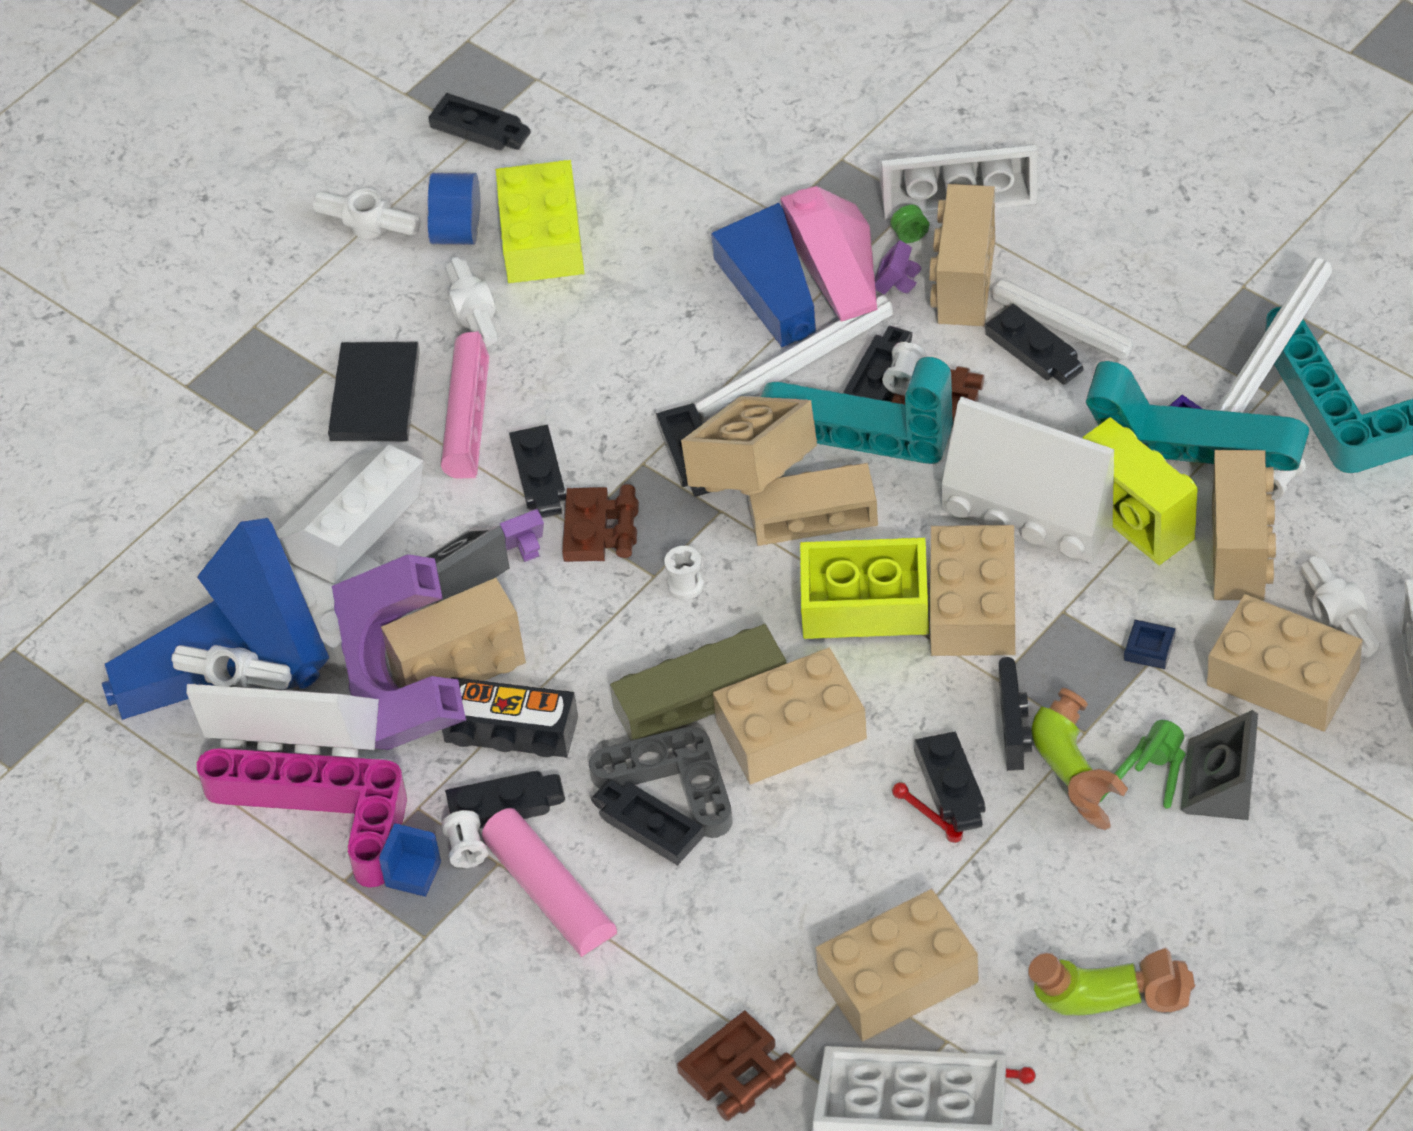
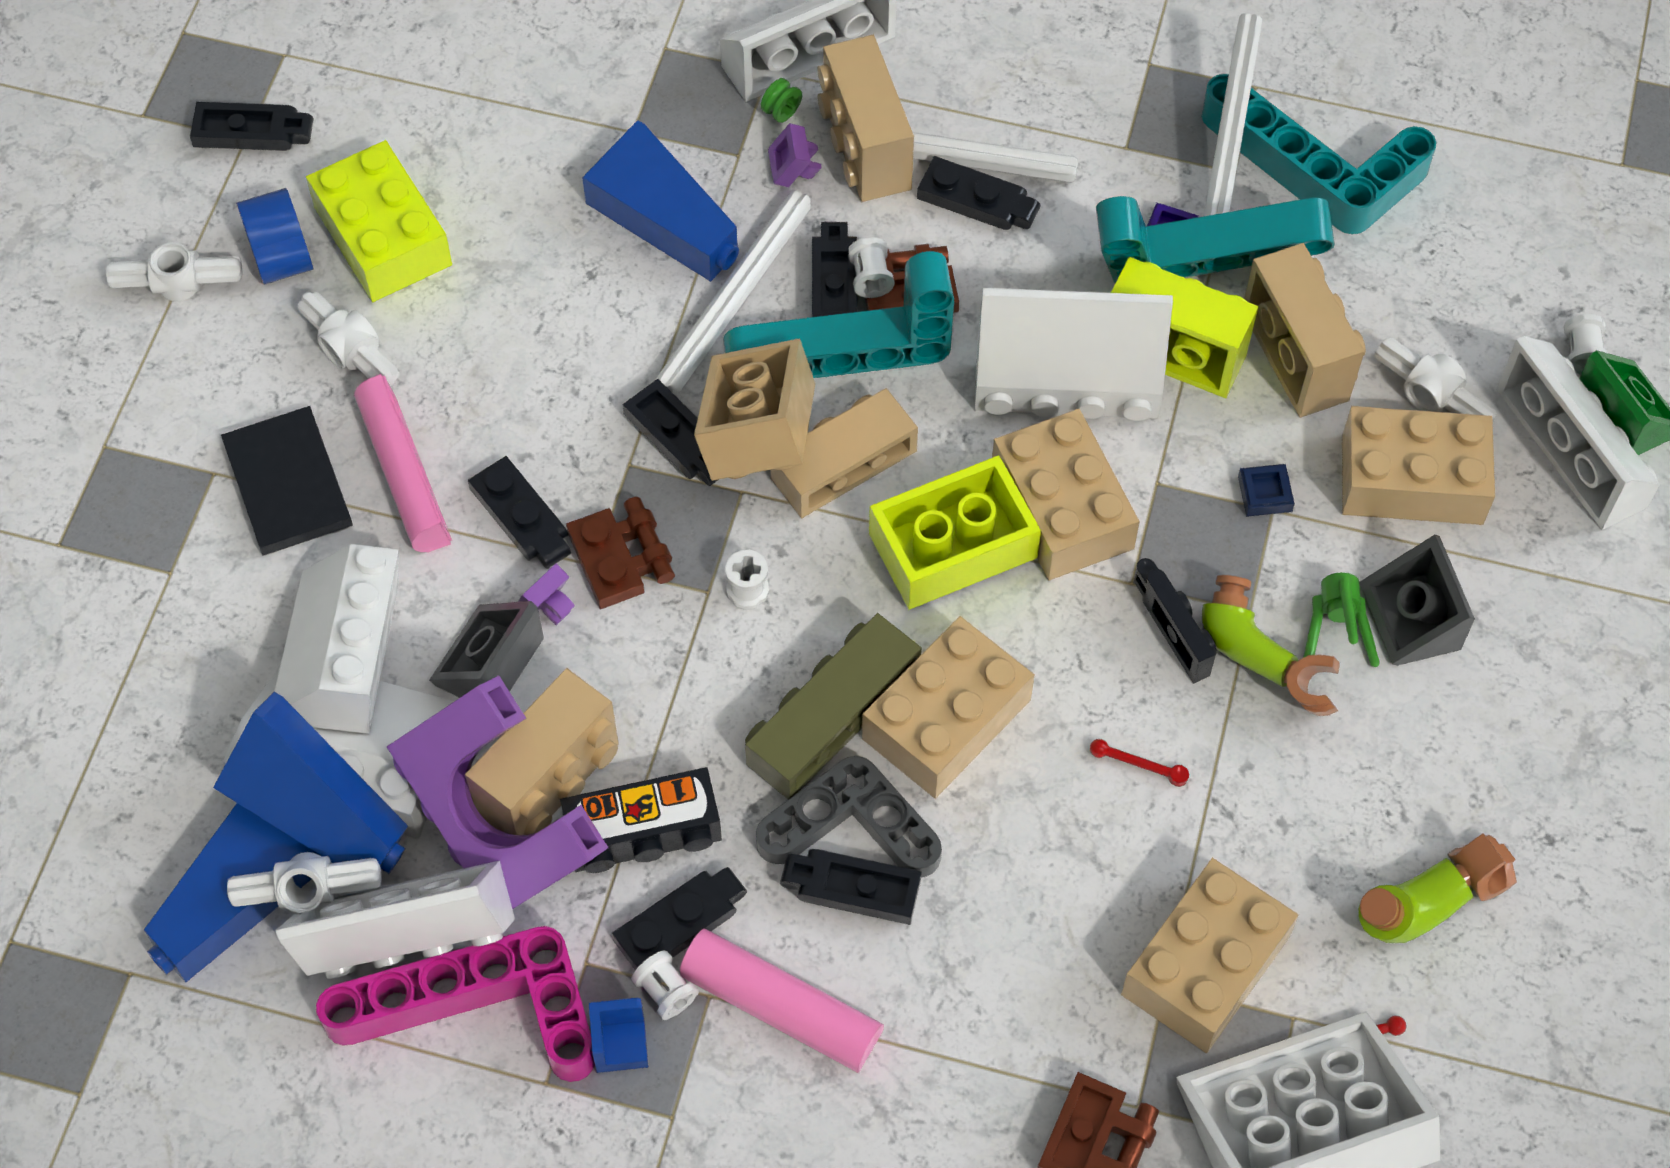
camera: 30 degrees left, 10 degrees up
(835, 248) = (721, 156): bright pink wedge -> none
(950, 780) = (1149, 719): black hinge -> none

